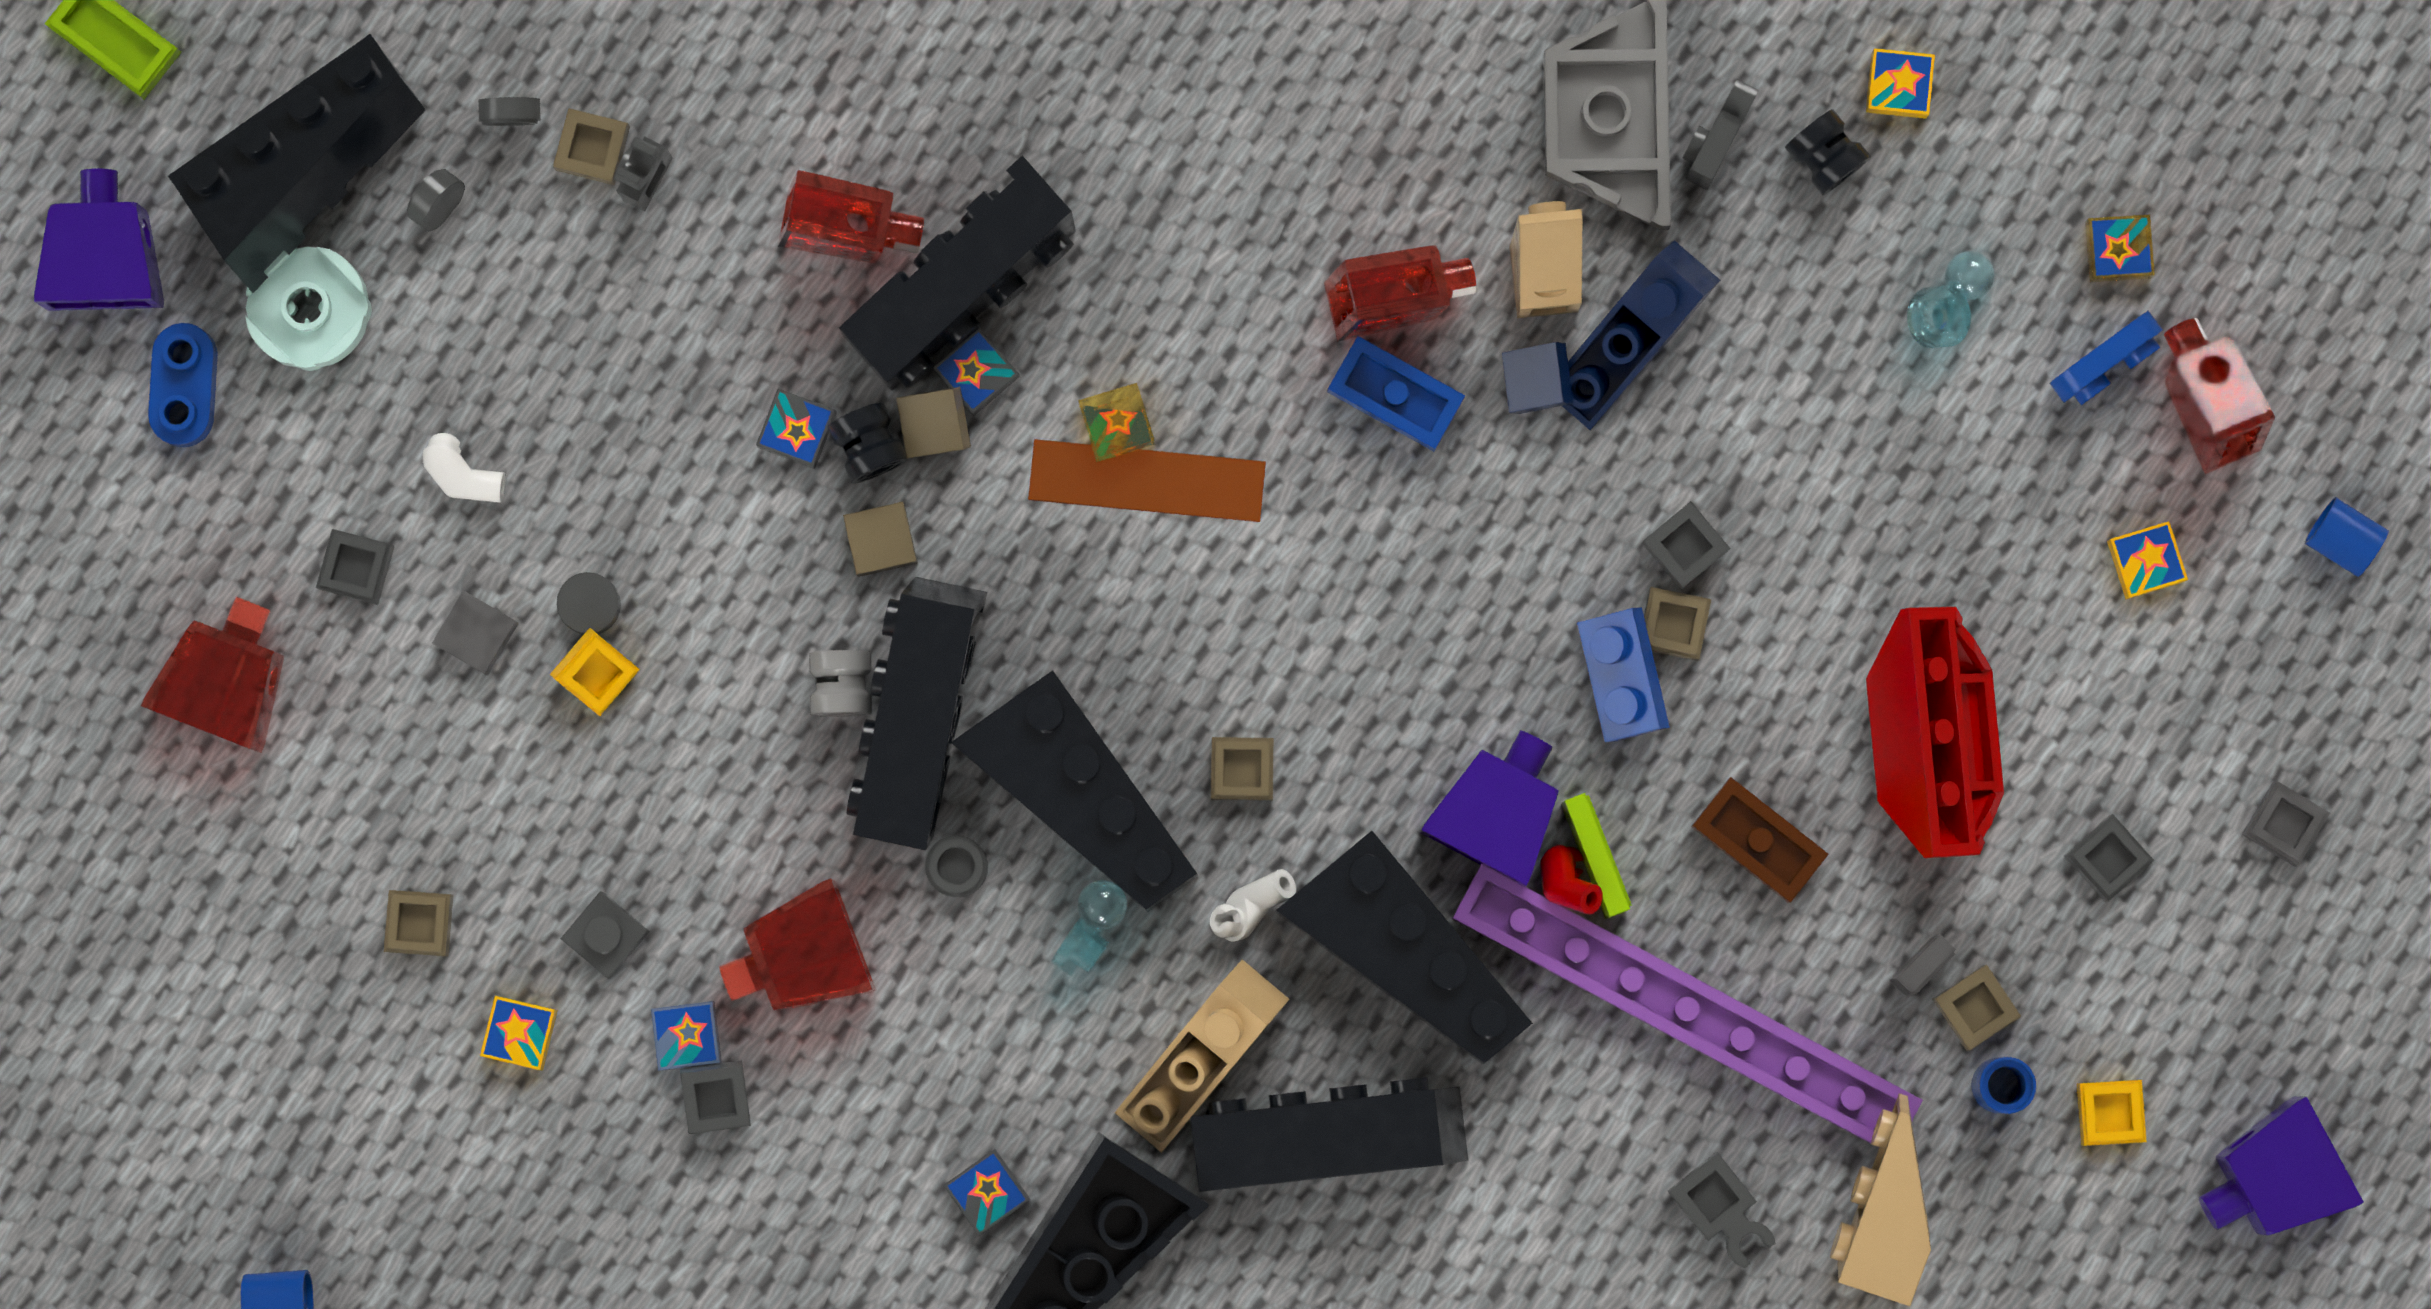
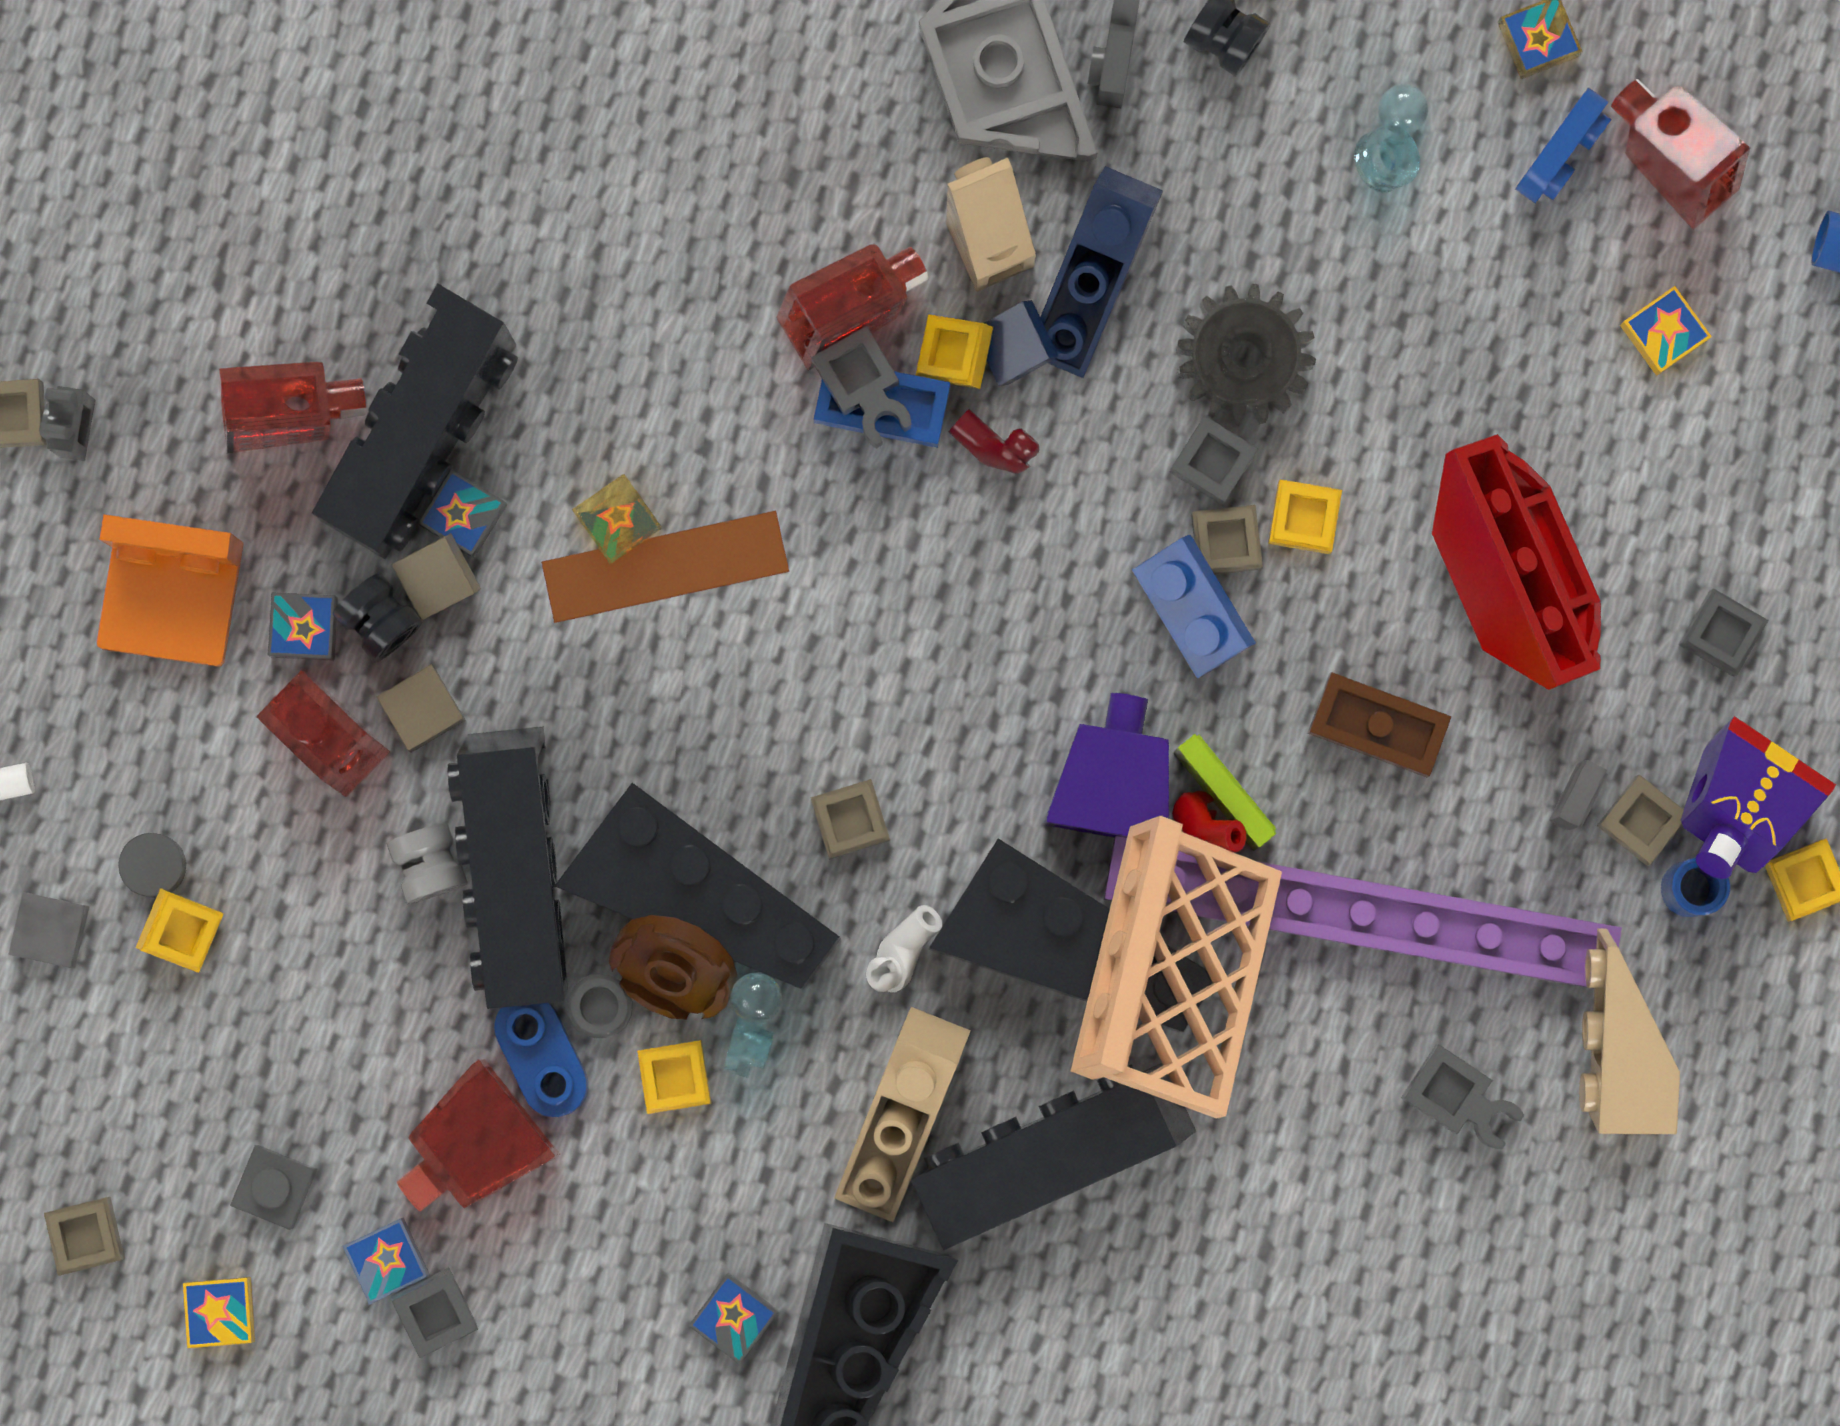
camera: 25 degrees left, 0 degrees up
(684, 356) = (168, 590): none -> orange bracket
(783, 533) = (323, 733): none -> clear red torso
(888, 894) = (541, 1055): none -> blue plate
(1003, 953) = (674, 1077): none -> yellow tile
(1035, 852) = (673, 967): none -> reddish brown tile
(1381, 364) = (859, 377): none -> dark grey plate
(1454, 976) = (1126, 964): none -> light nougat fence
(1478, 367) = (954, 351): none -> yellow tile
(1483, 469) = (990, 448): none -> dark red arm
(1754, 625) = (1305, 516): none -> yellow tile
(1770, 433) = (1241, 388): none -> clear smoke gear
(2078, 1020) = (1748, 800): none -> dark purple torso

